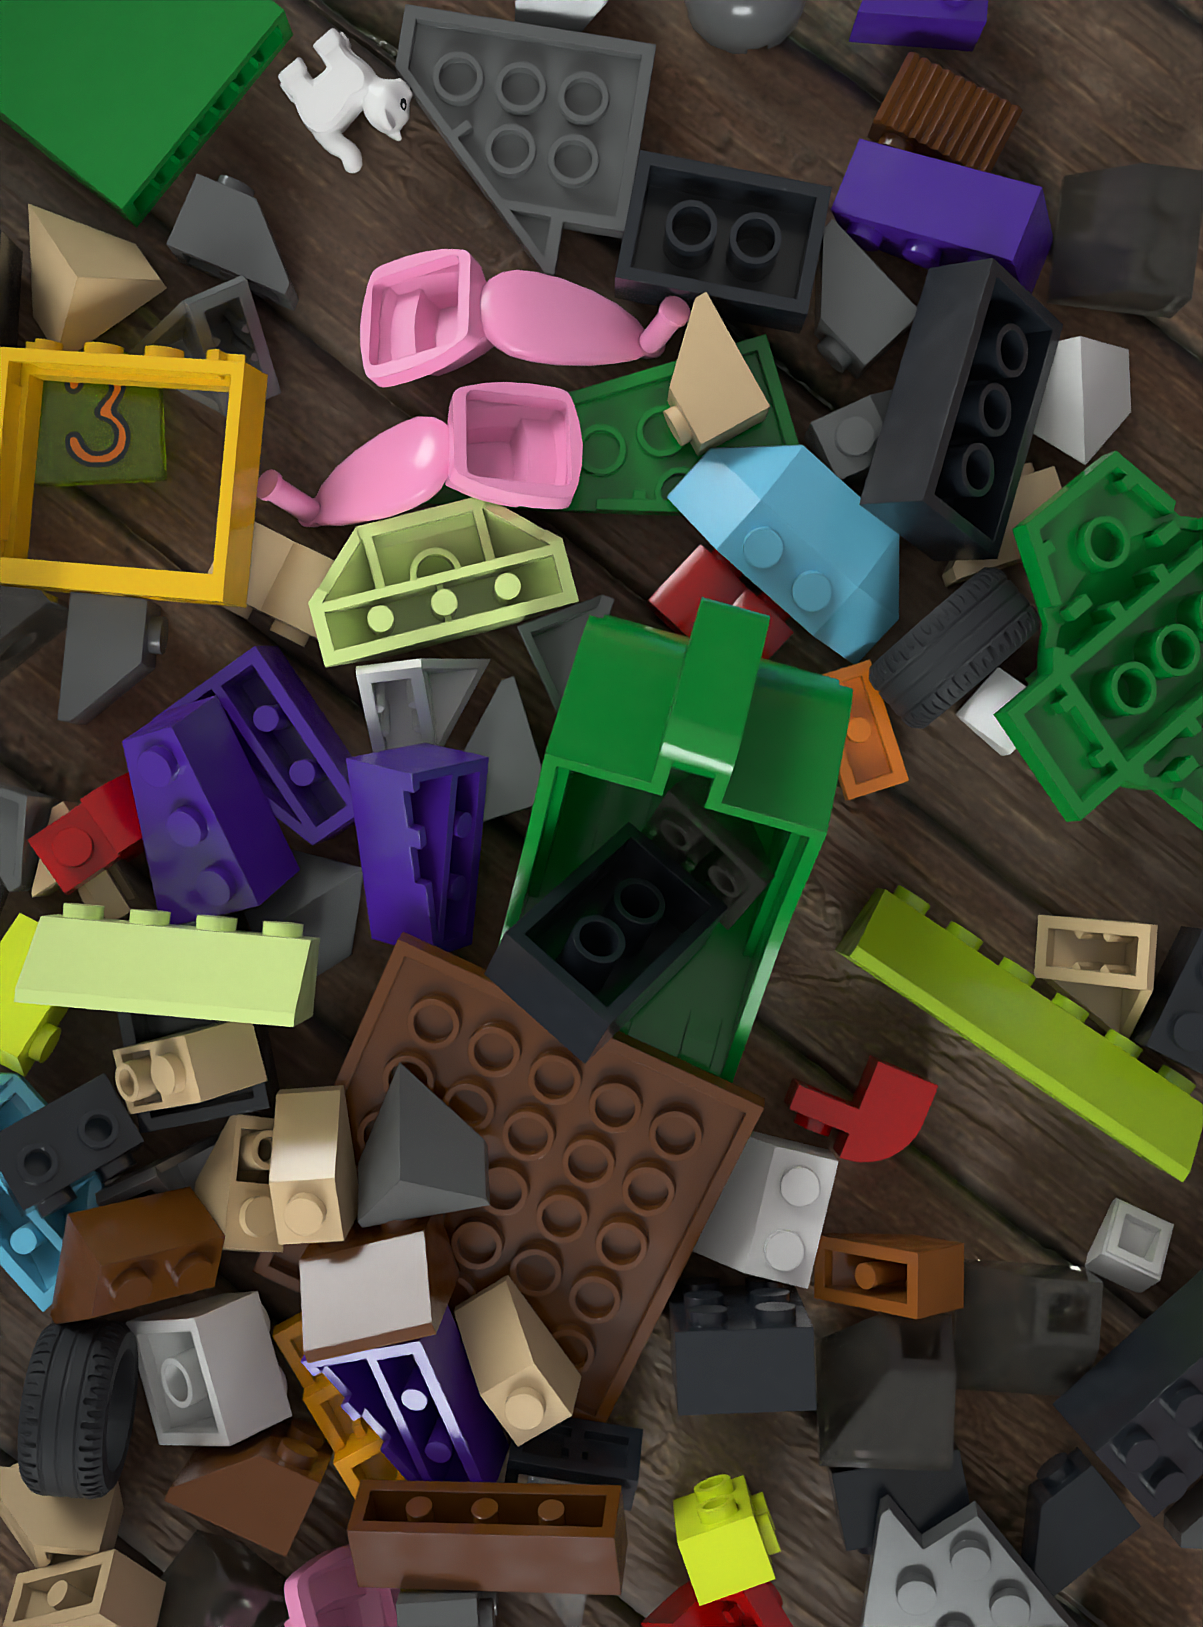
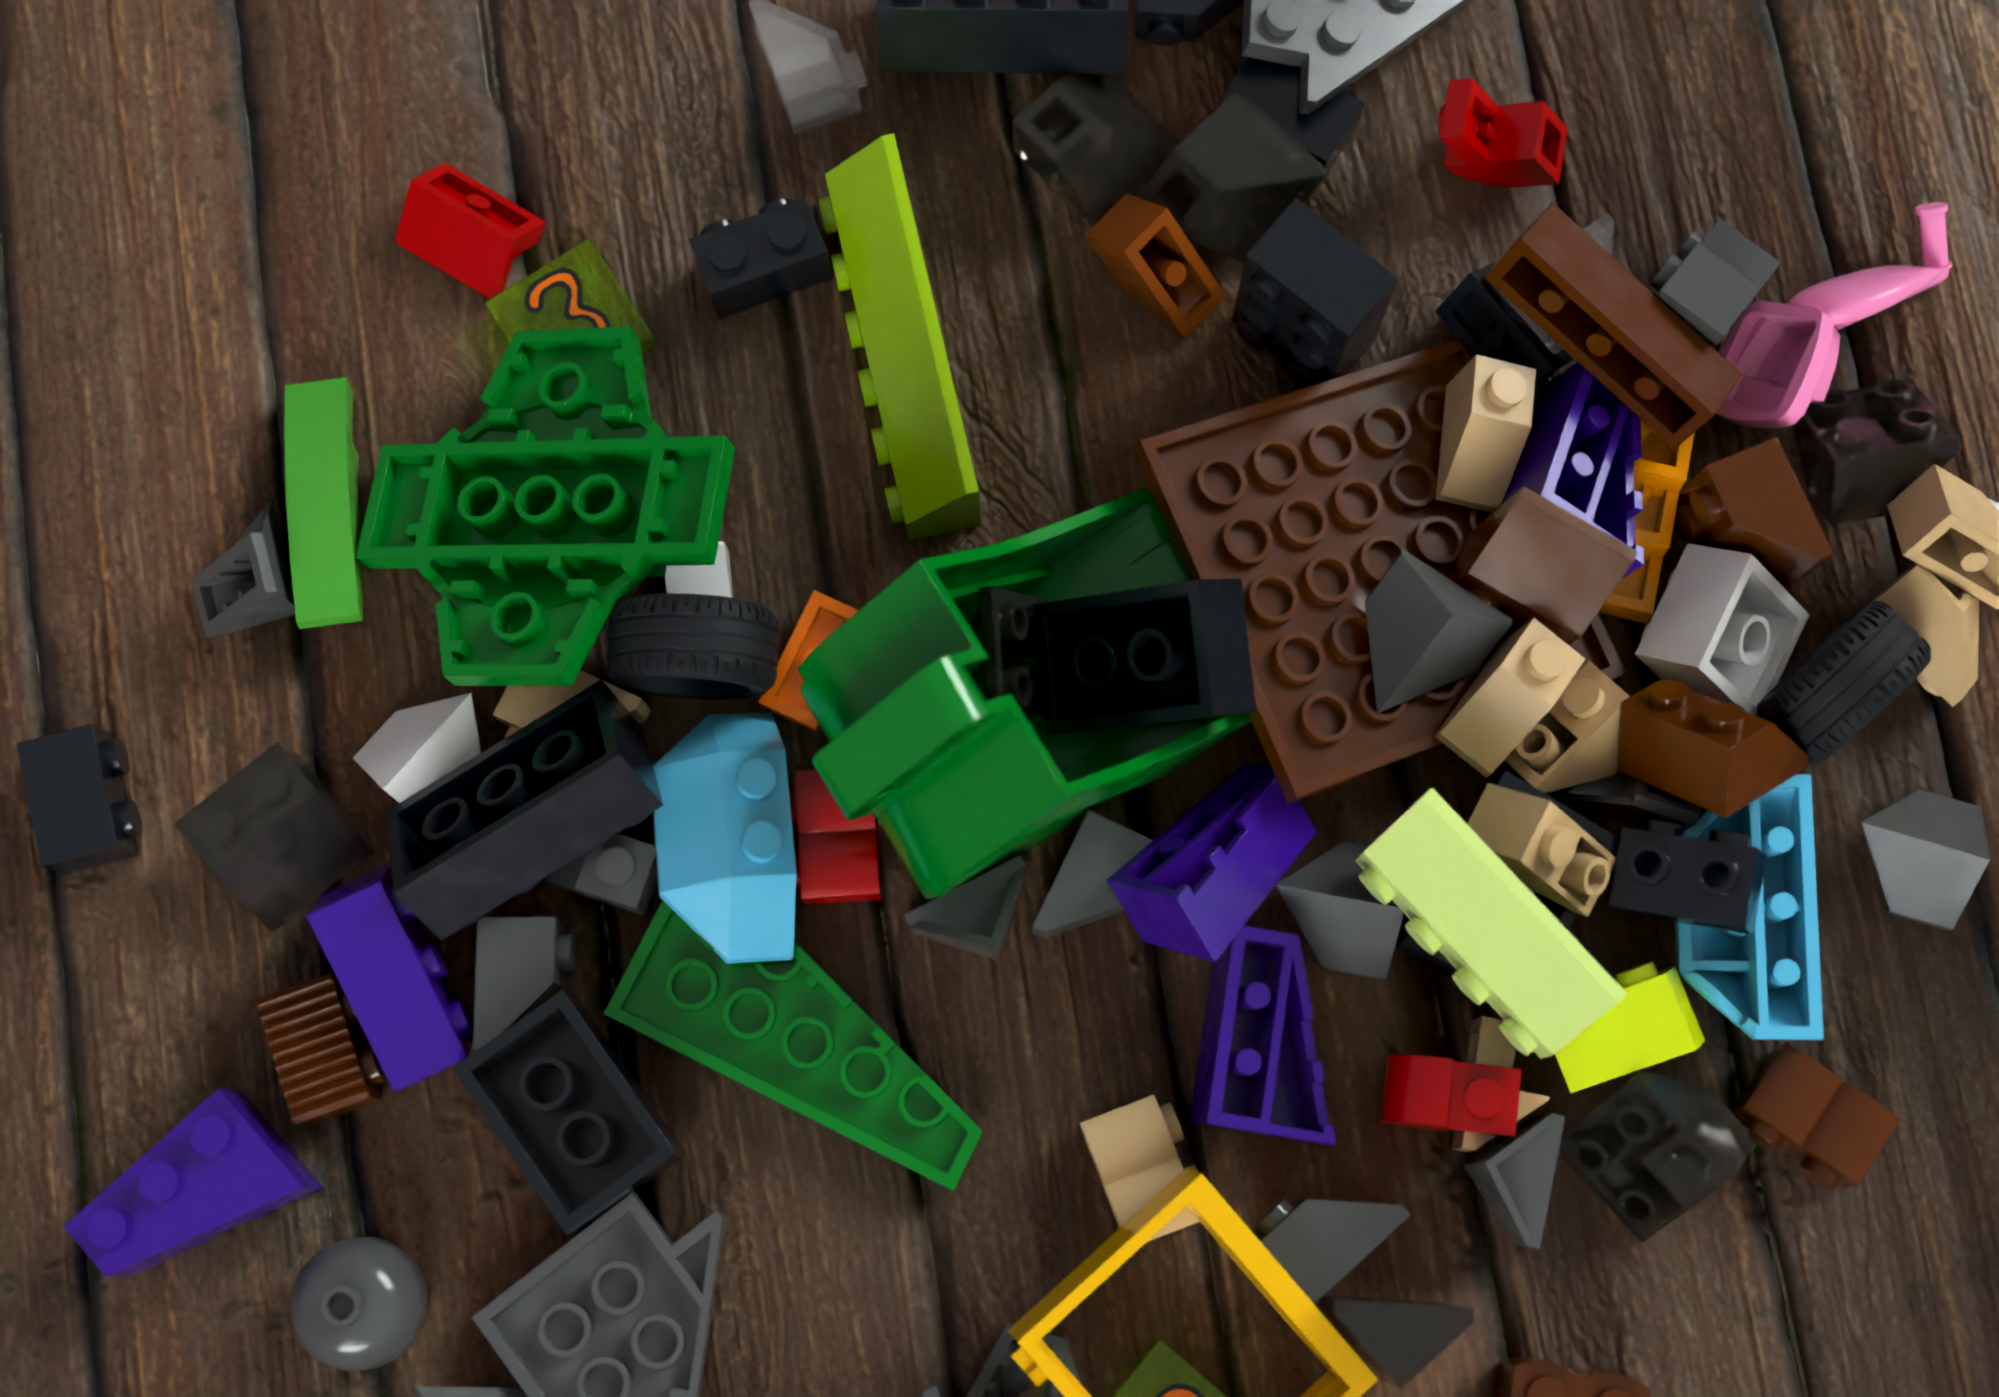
camera: 130 degrees left, 10 degrees down
(203, 815) = (1361, 1028): dark purple wedge -> none
(416, 699) = (1124, 981): white slope -> none
(437, 580) = (1022, 1051): yellowish green wedge -> none
(440, 314) = (832, 1258): bright pink piece -> none
(498, 446) = (882, 1105): bright pink piece -> none
(711, 384) = (681, 1008): tan slope -> none
(725, 1537) = (1442, 184): neon yellow brick -> none
(772, 1210) = (1197, 373): white slope -> none
(879, 1119) = (1064, 375): red brick -> none
(1099, 966) = (803, 340): tan slope -> none
(1130, 1247) = (968, 135): white slope -> none

